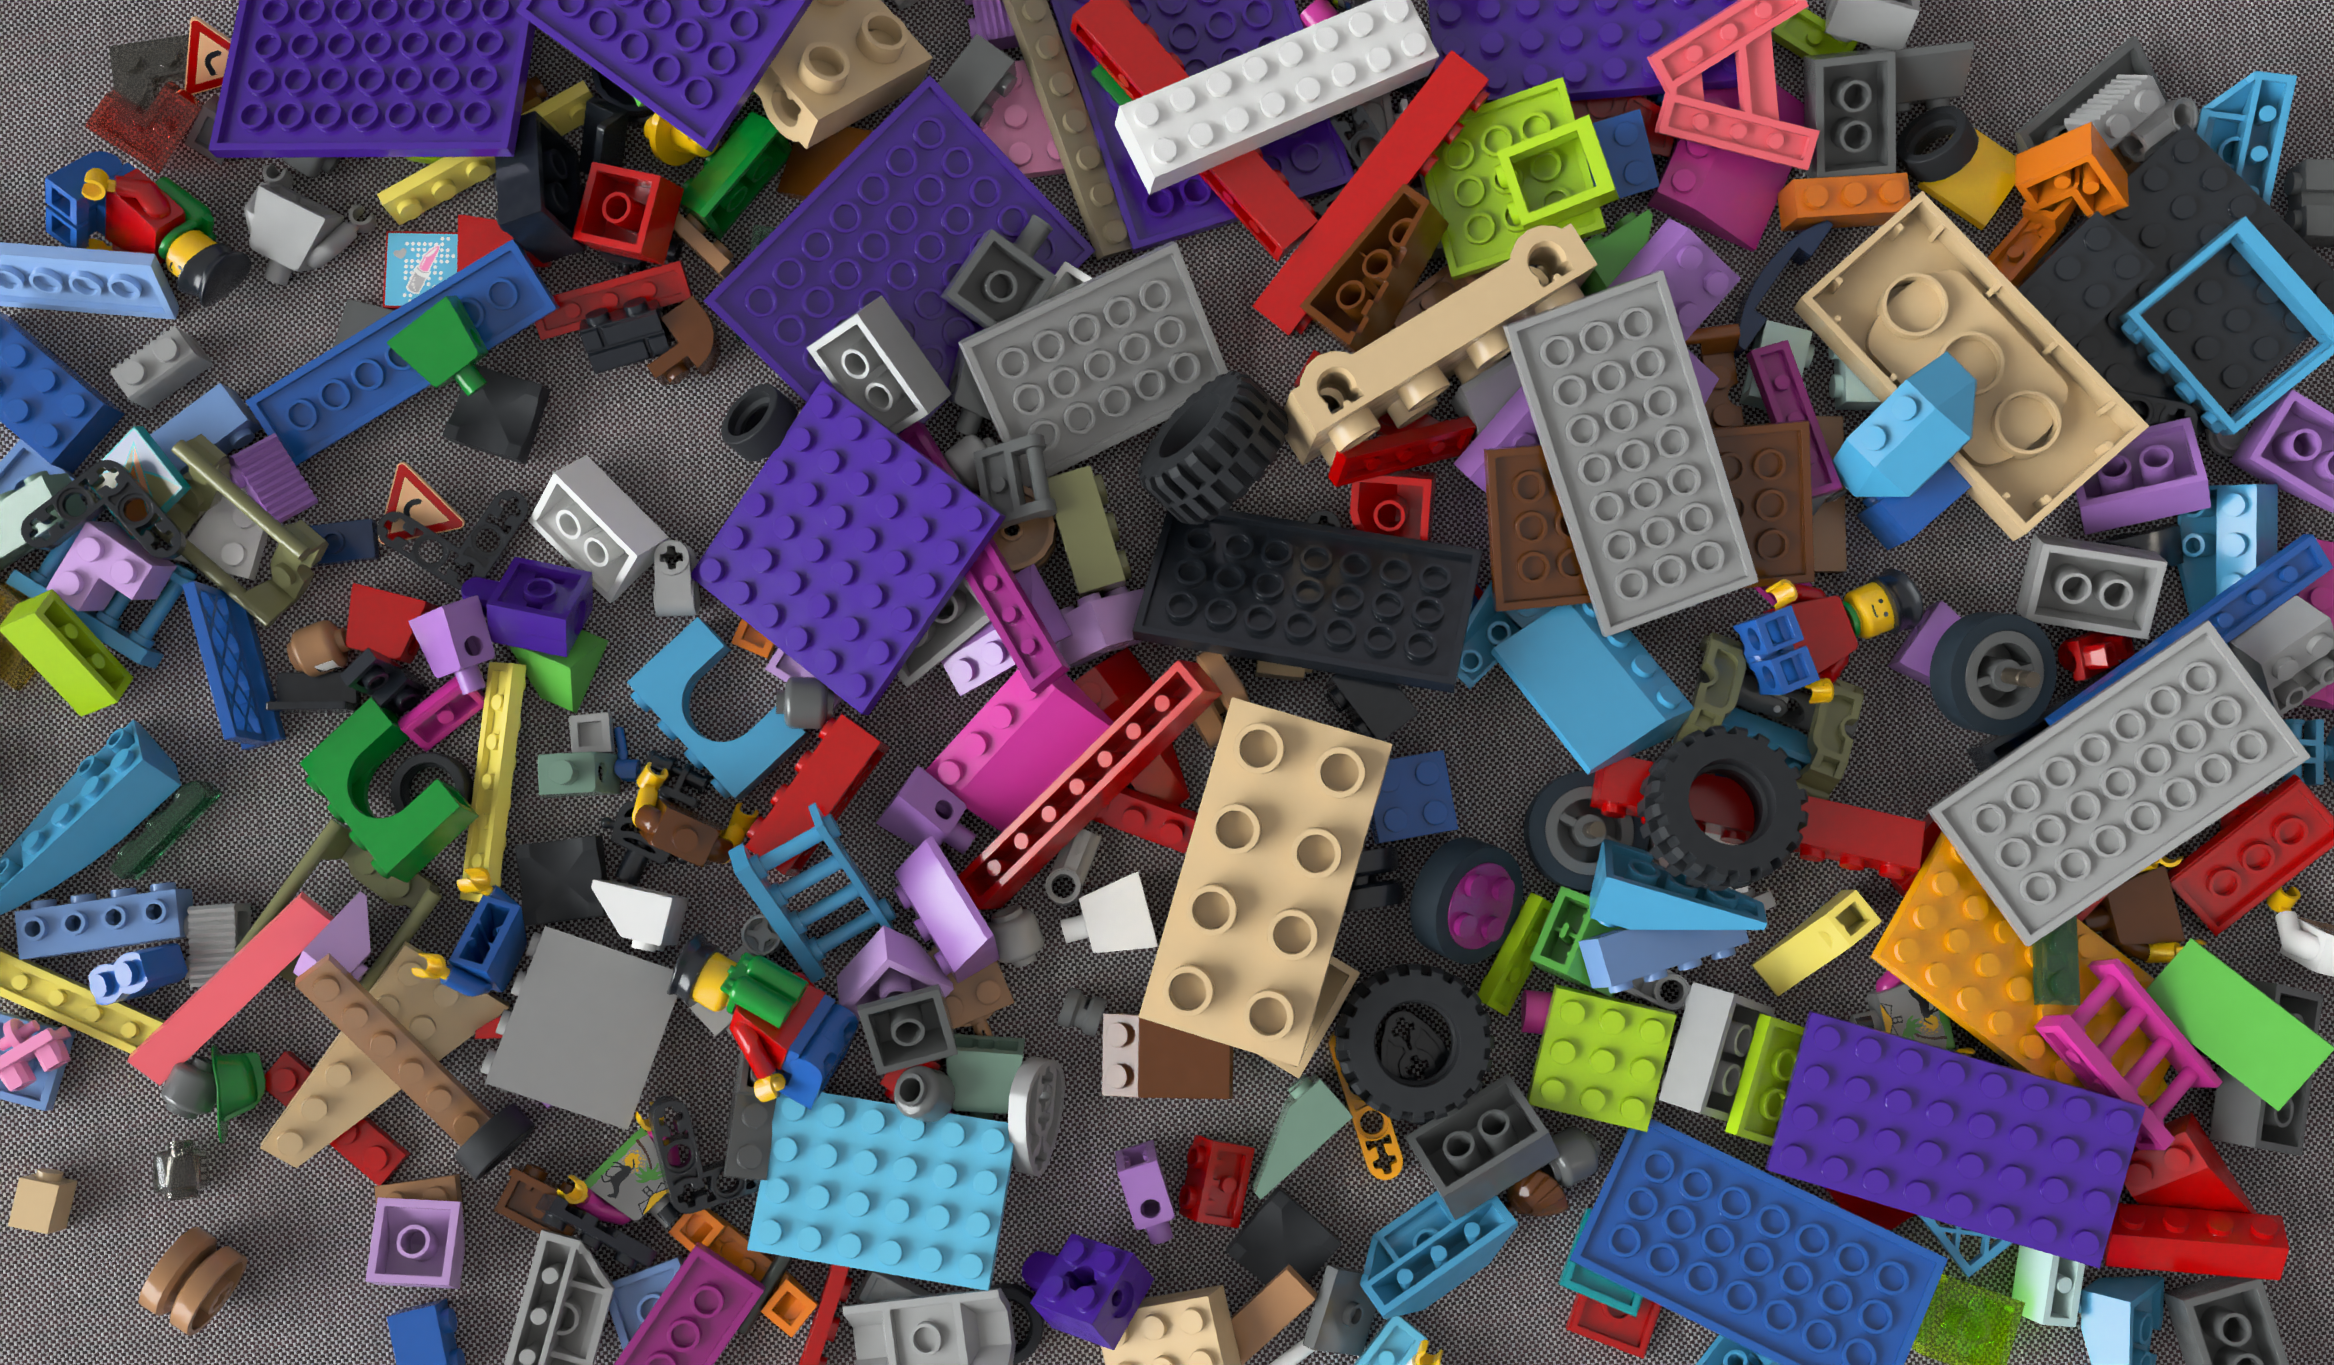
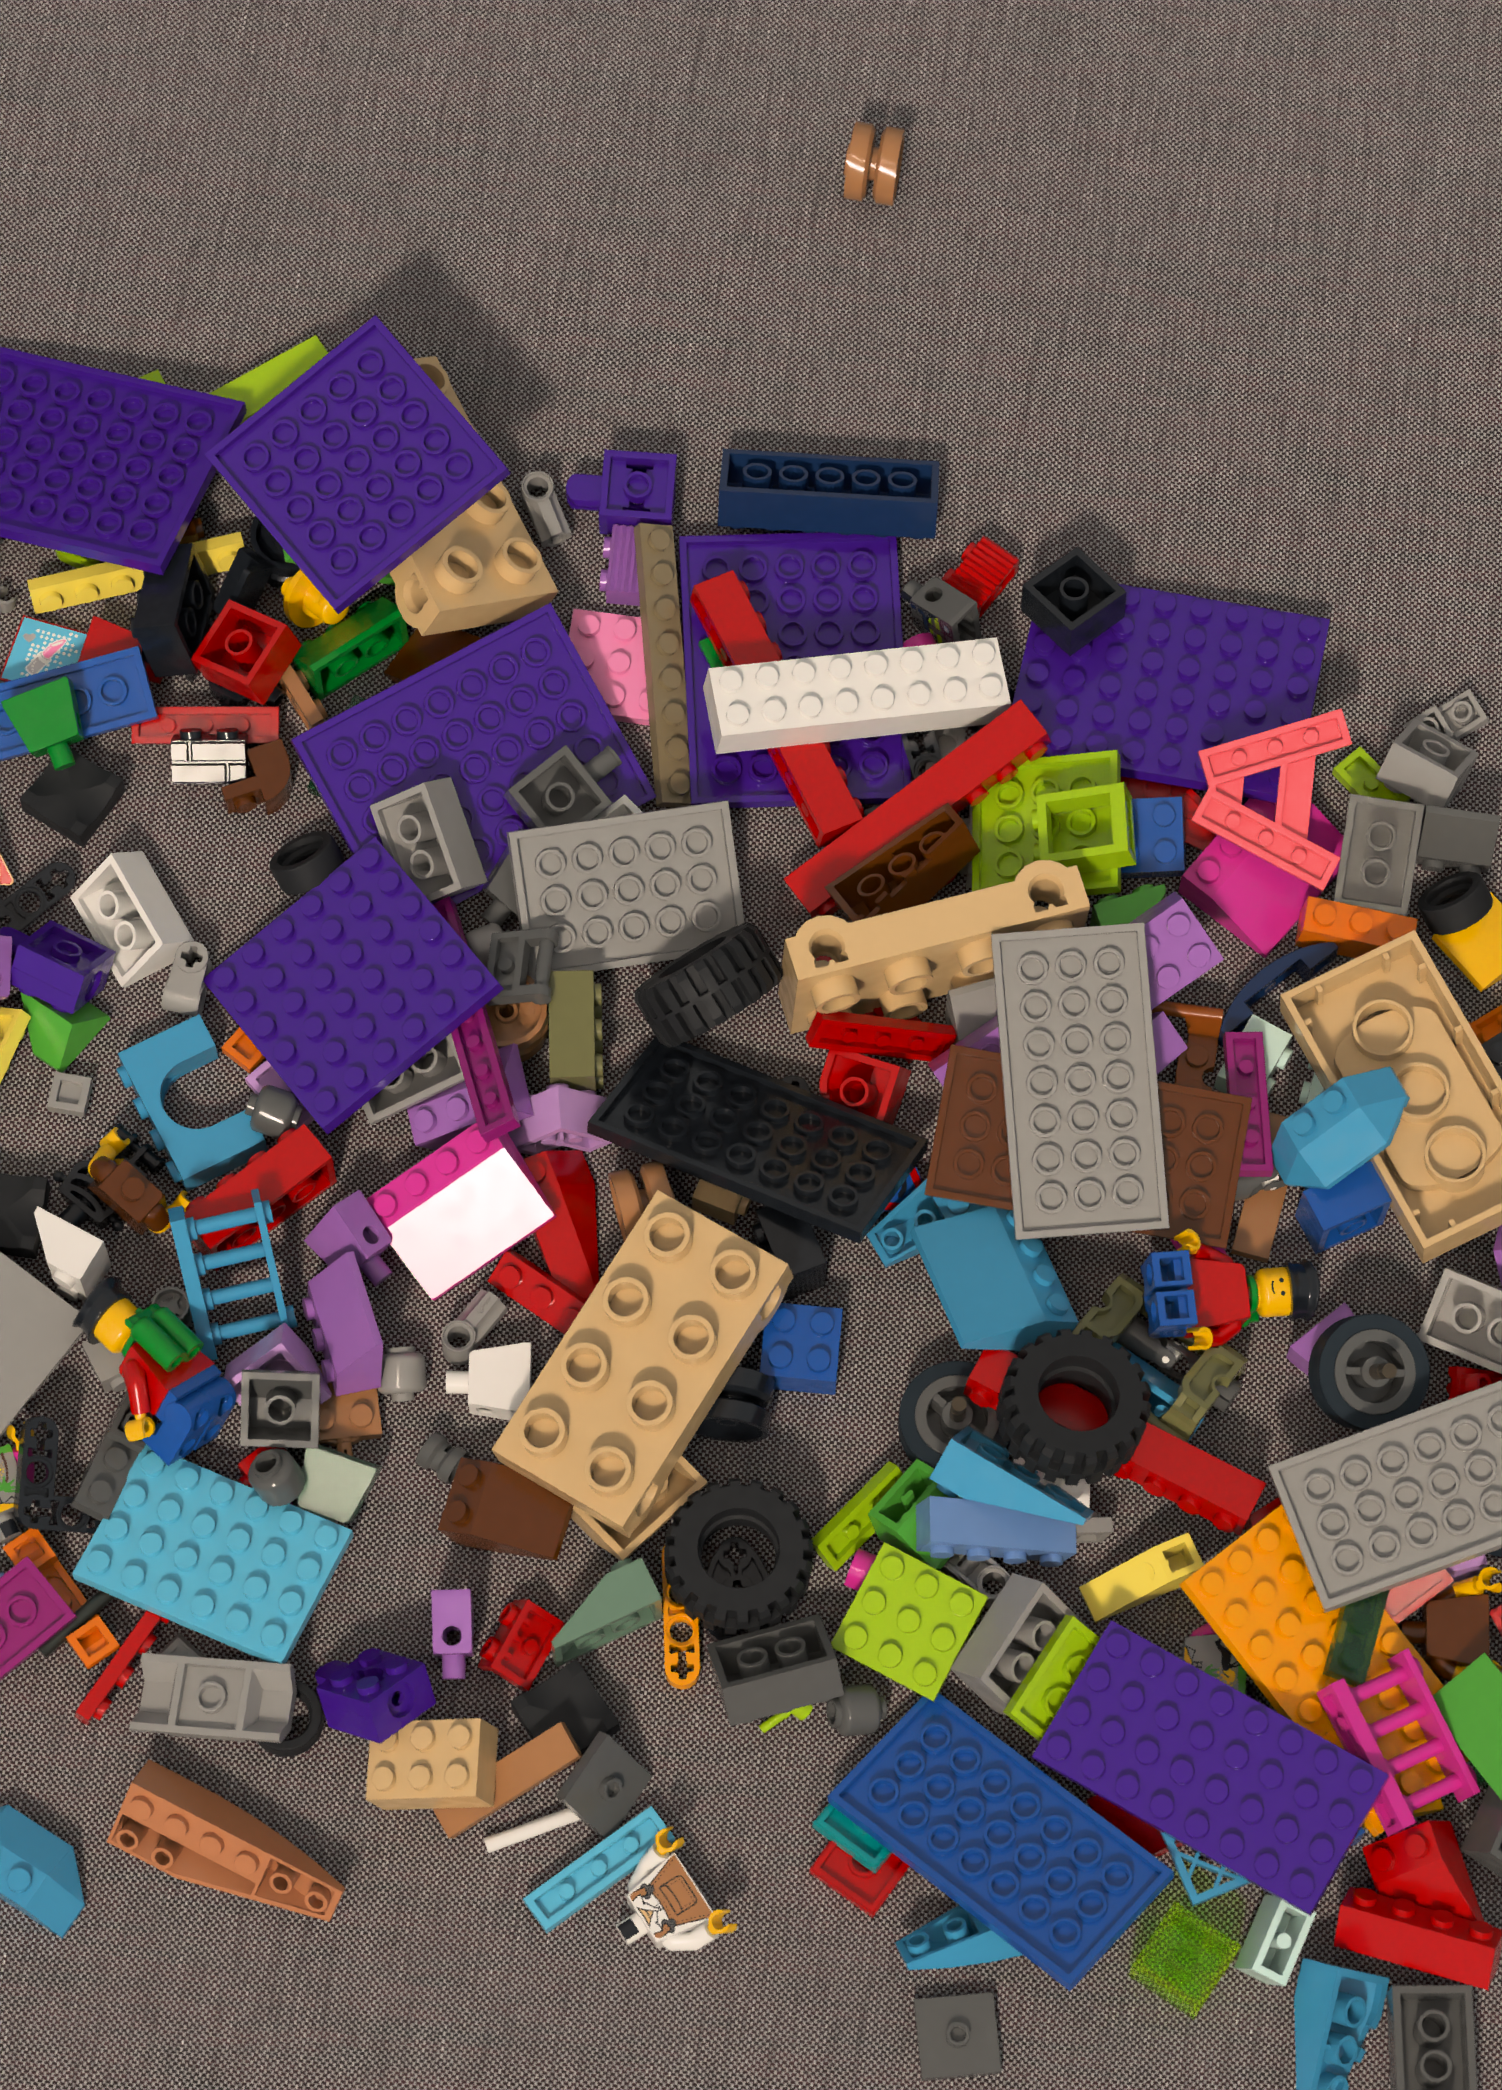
camera: 15 degrees right, 15 degrees down
(577, 774) = (43, 1123): sand green torso -> none
(625, 768) = (90, 1132): blue hand -> none
(979, 79) = (595, 621): dark grey brick -> none
(1035, 1113) = (372, 1531): light grey piece -> none
(1089, 784) = (508, 1245): red brick -> none
(1431, 1253) = (704, 1758): dark azure wedge -> none
(1466, 900) = (824, 1445): black wheel -> none
(1537, 1196) = (812, 1736): reddish brown piece -> none

